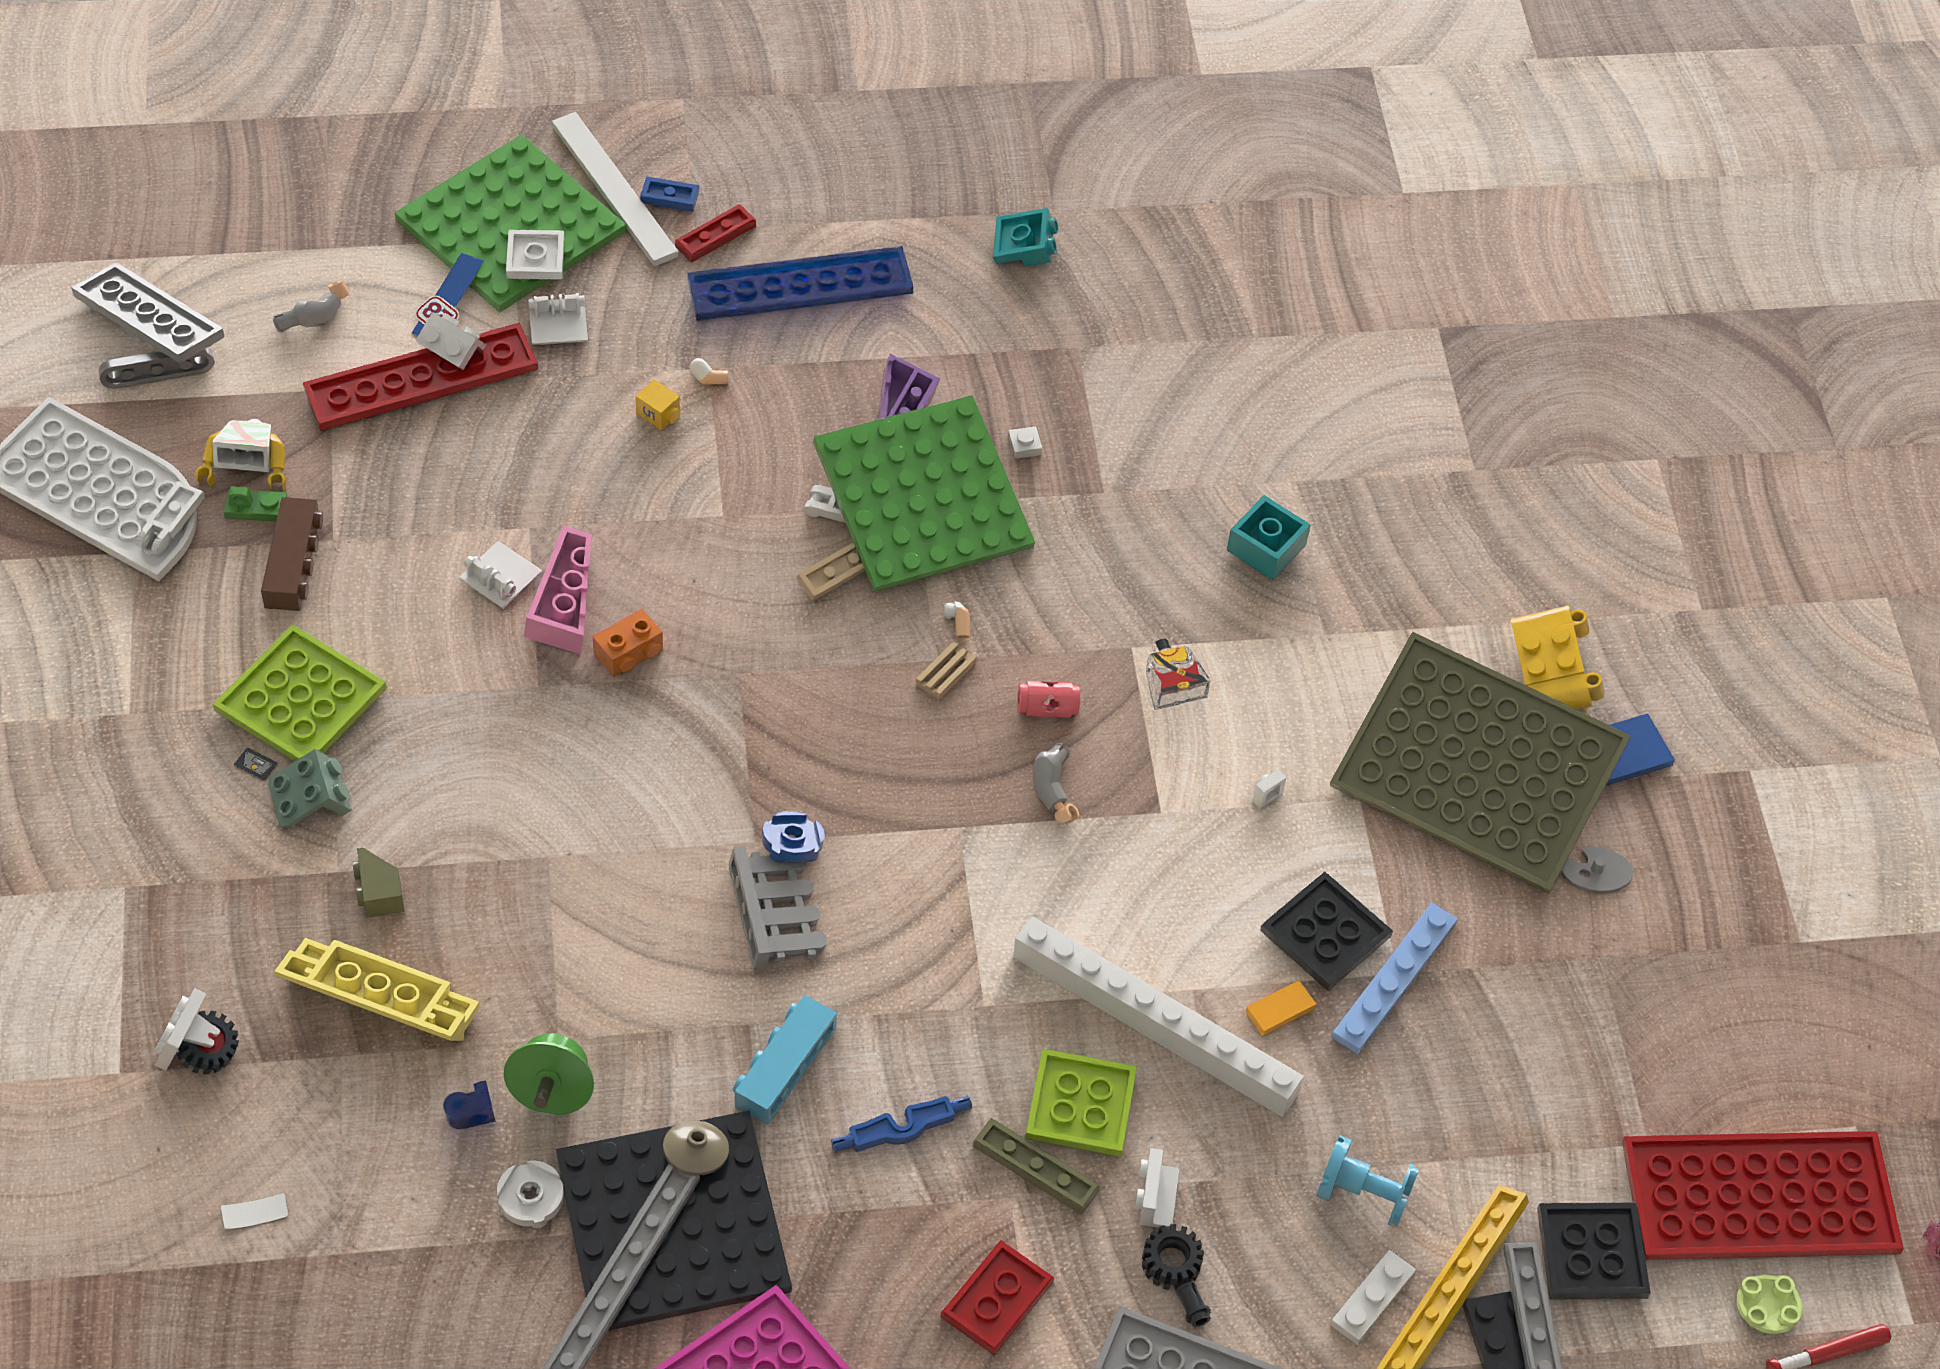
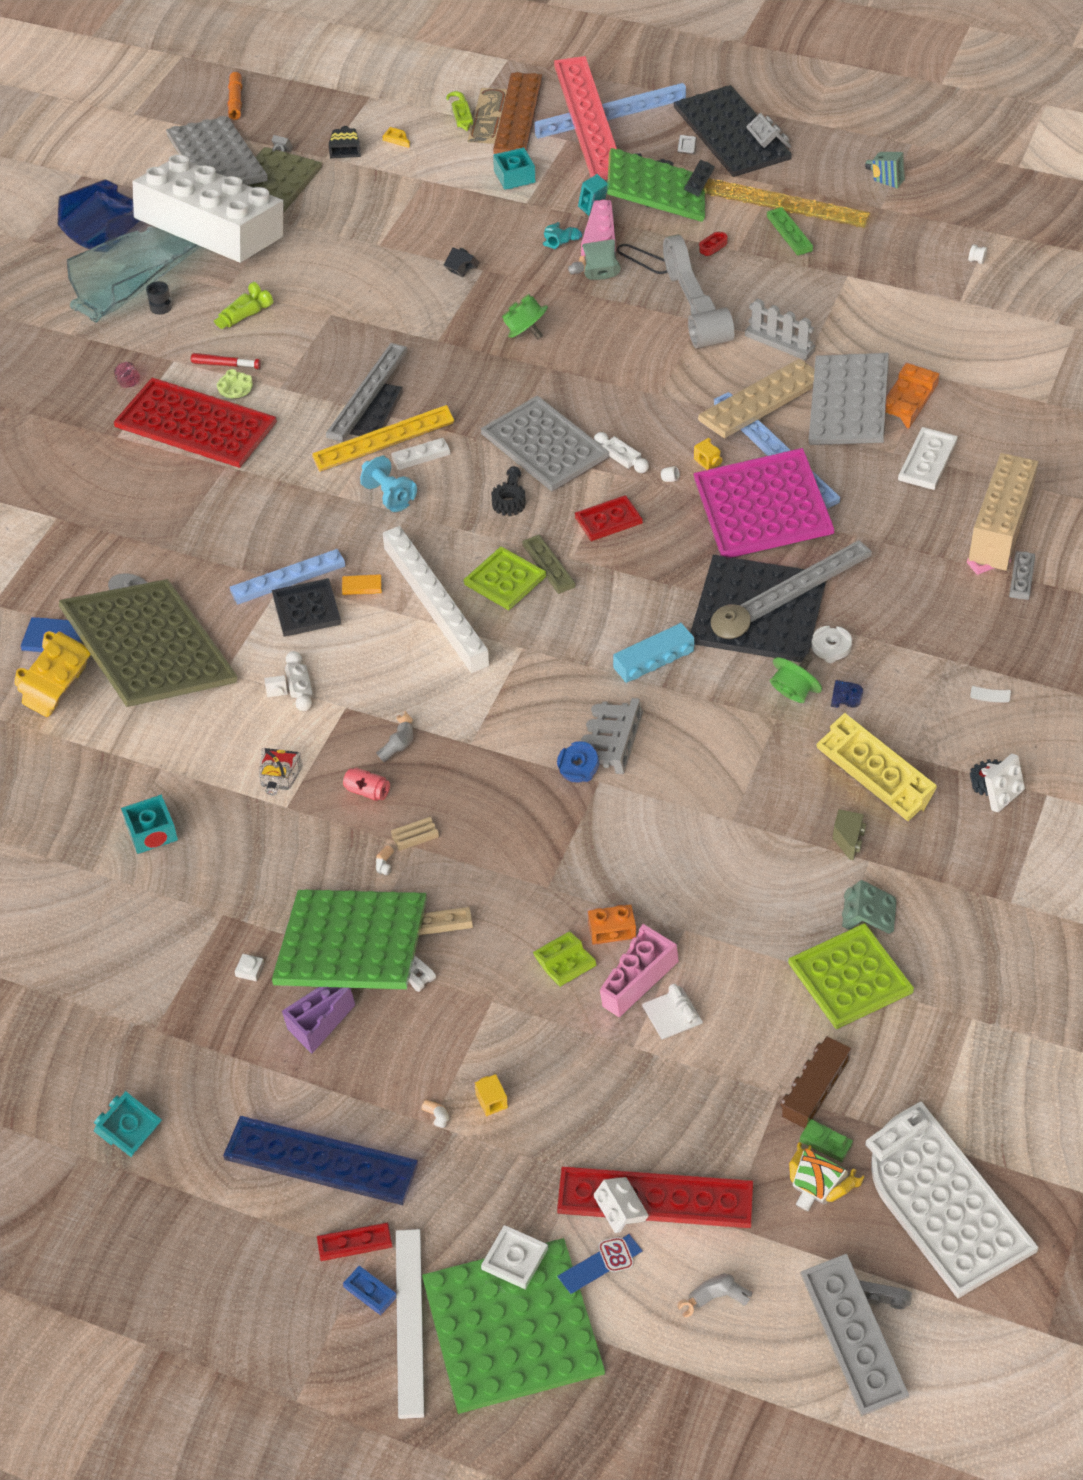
camera: 145 degrees left, 5 degrees down
(255, 763) = (897, 949): black sticker -> none
(558, 319) = (523, 1207): white hinge -> none
(664, 588) = (564, 958): none -> lime slope
(885, 1130) = (597, 605): blue piece -> none
(1159, 1191) = (497, 523): white bracket -> none
(1247, 813) = (298, 681): none -> white plate
(1593, 1251) = (297, 430): black plate -> none

